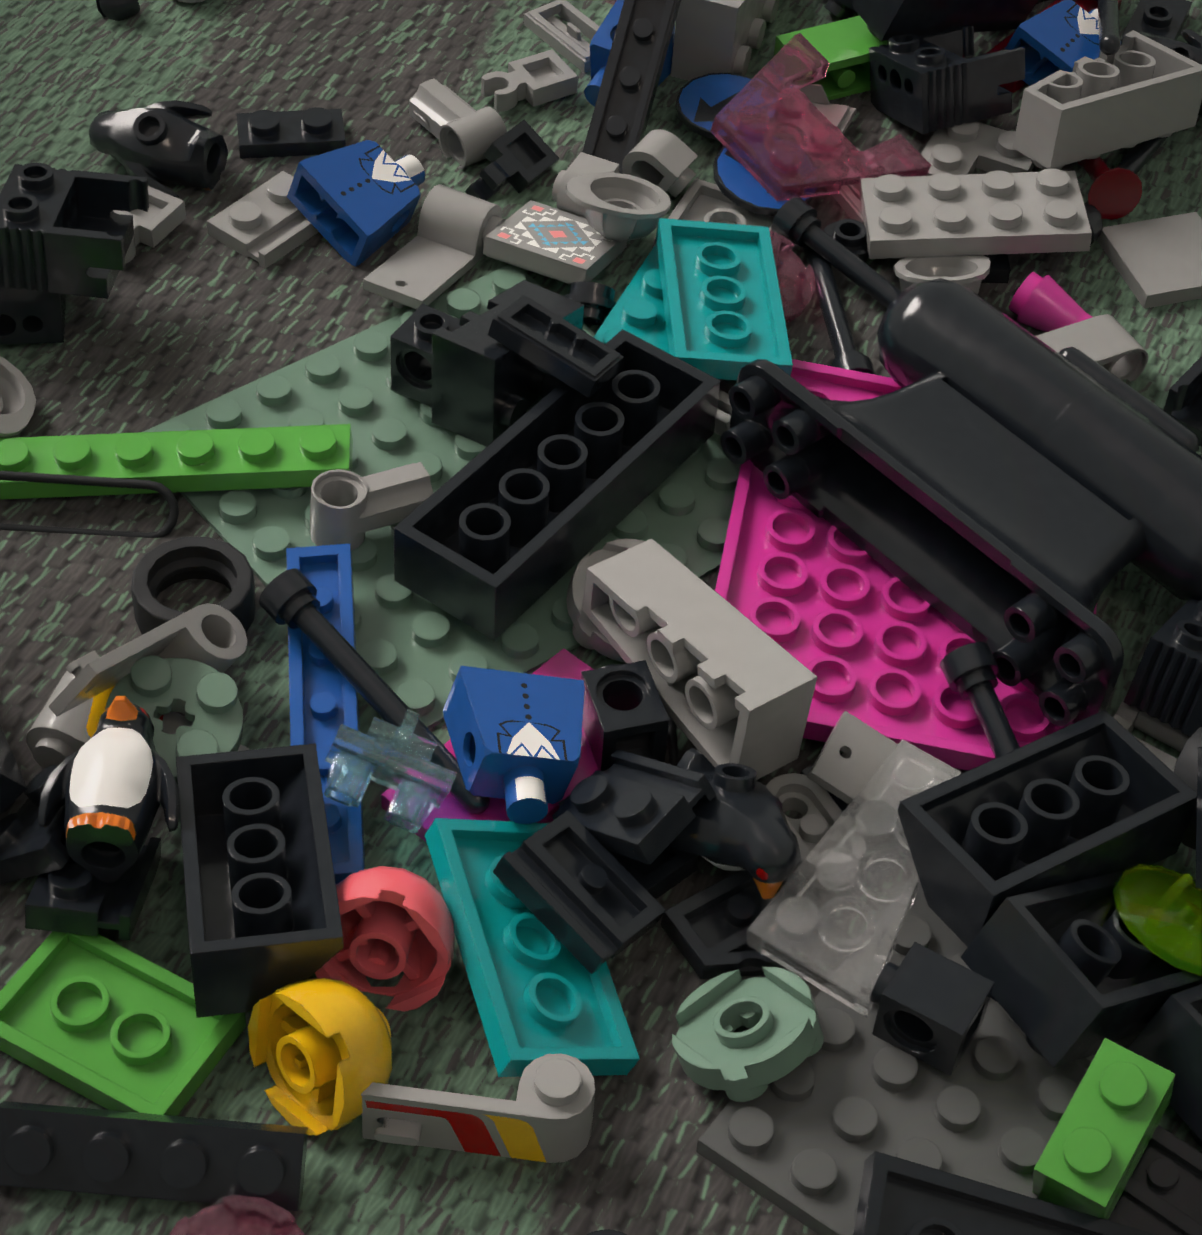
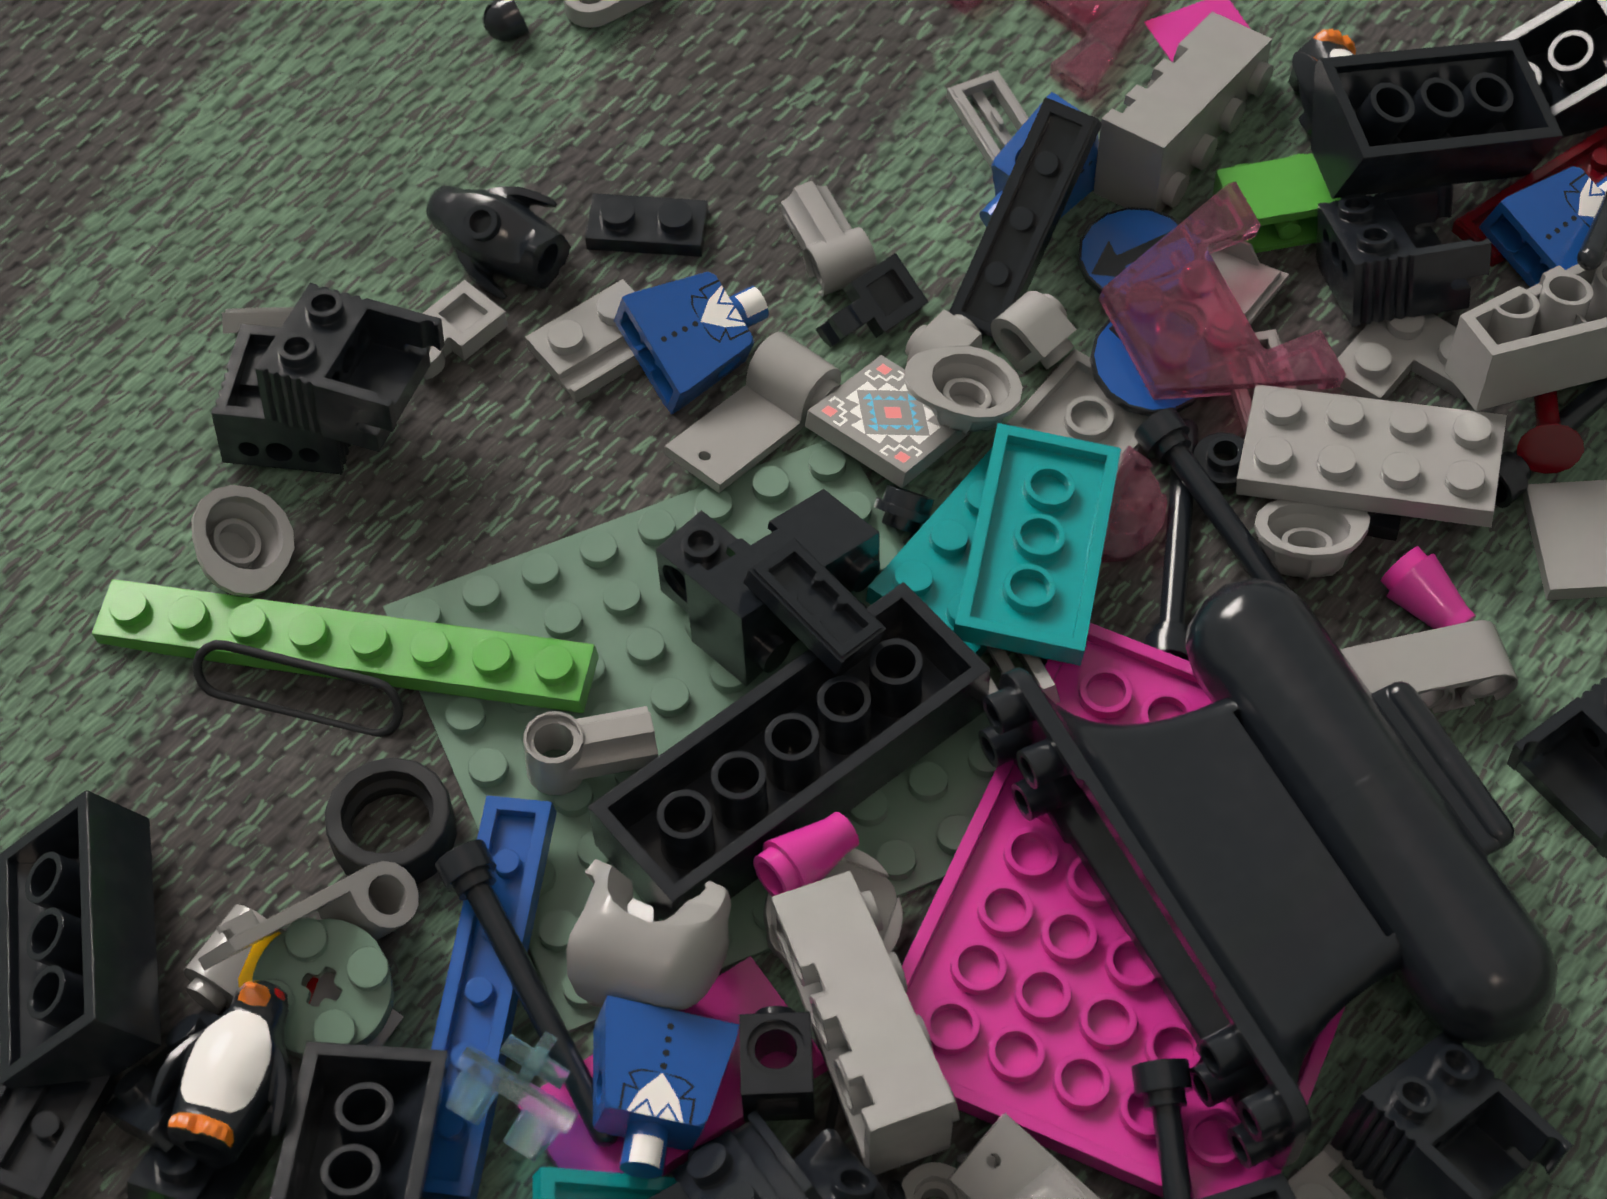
camera: 20 degrees right, 10 degrees up
(478, 628) = (632, 955): none -> light grey piece
(532, 78) = (931, 184): light grey plate -> none
(599, 540) = (805, 854): none -> dark pink cone

